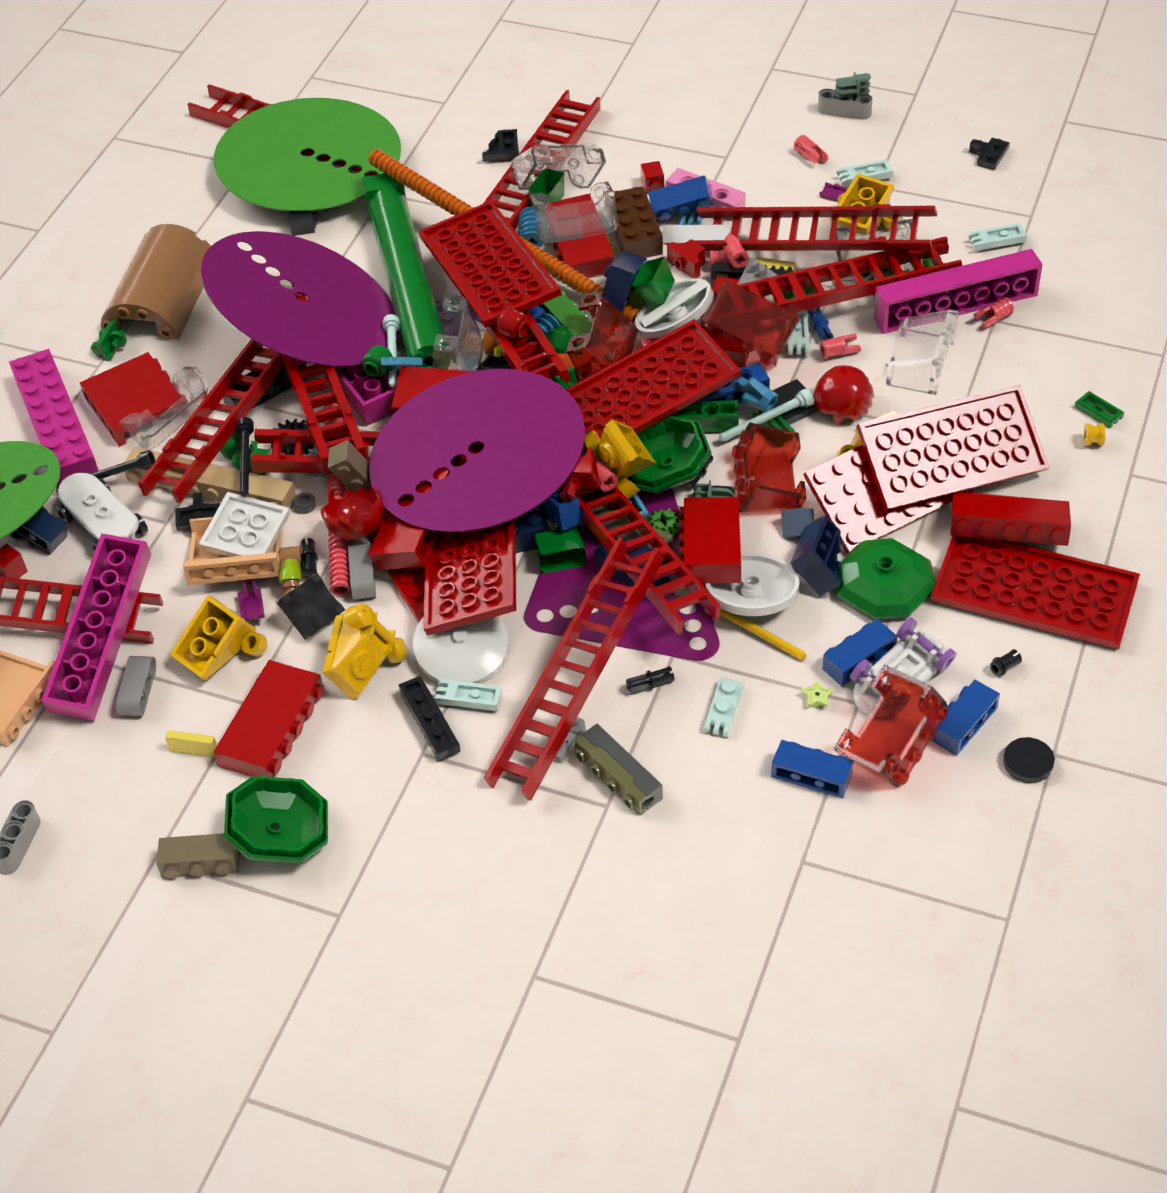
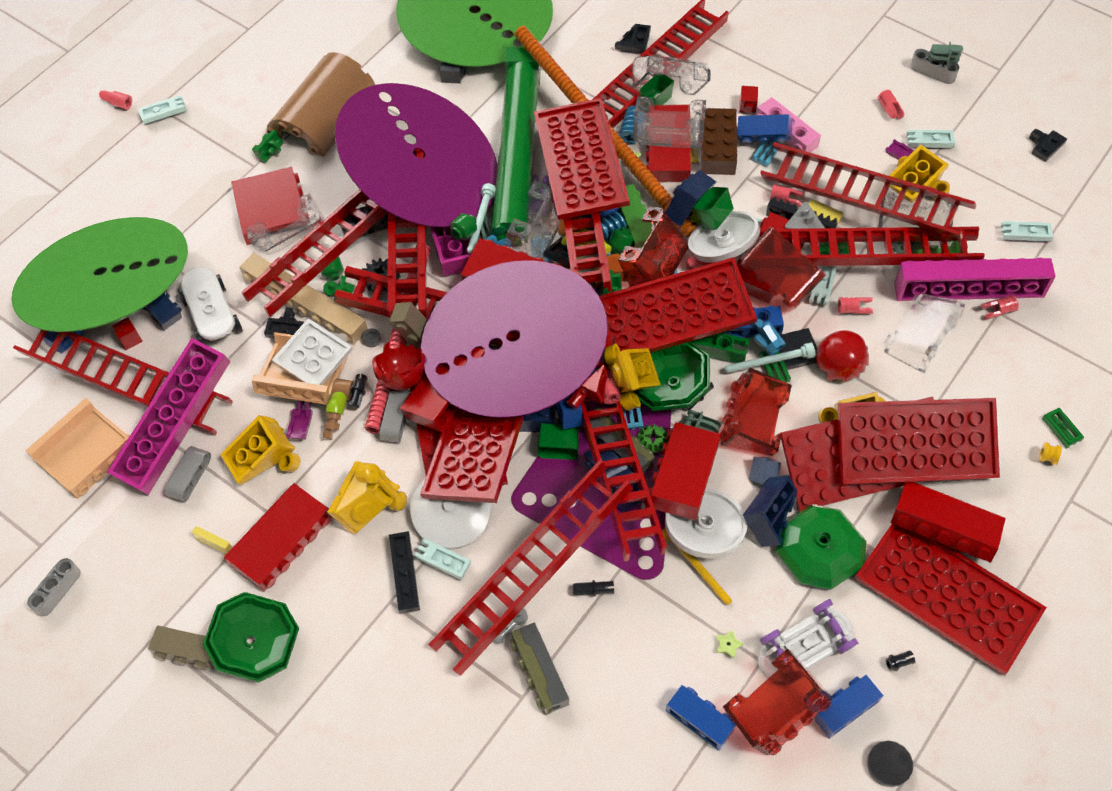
camera: 15 degrees right, 10 degrees up
(53, 412) = (203, 206): dark pink brick -> none
(143, 460) = (254, 269): black piece -> none
(244, 428) = (341, 261): black piece -> none
(310, 606) = (342, 441): black brick -> none
(401, 361) = (482, 232): medium azure tile -> none
(512, 323) = (580, 223): red head -> none
(672, 303) = (723, 232): white sticker -> none
(684, 233) = (767, 163): white sticker -> none
(687, 257) = (753, 185): red brick -> none
(724, 706) = (647, 631): light aqua hinge -> none
(735, 252) = (792, 193): coral hinge -> none
(820, 323) = (845, 279): blue pin -> none
(868, 643) = (776, 613): blue brick -> none

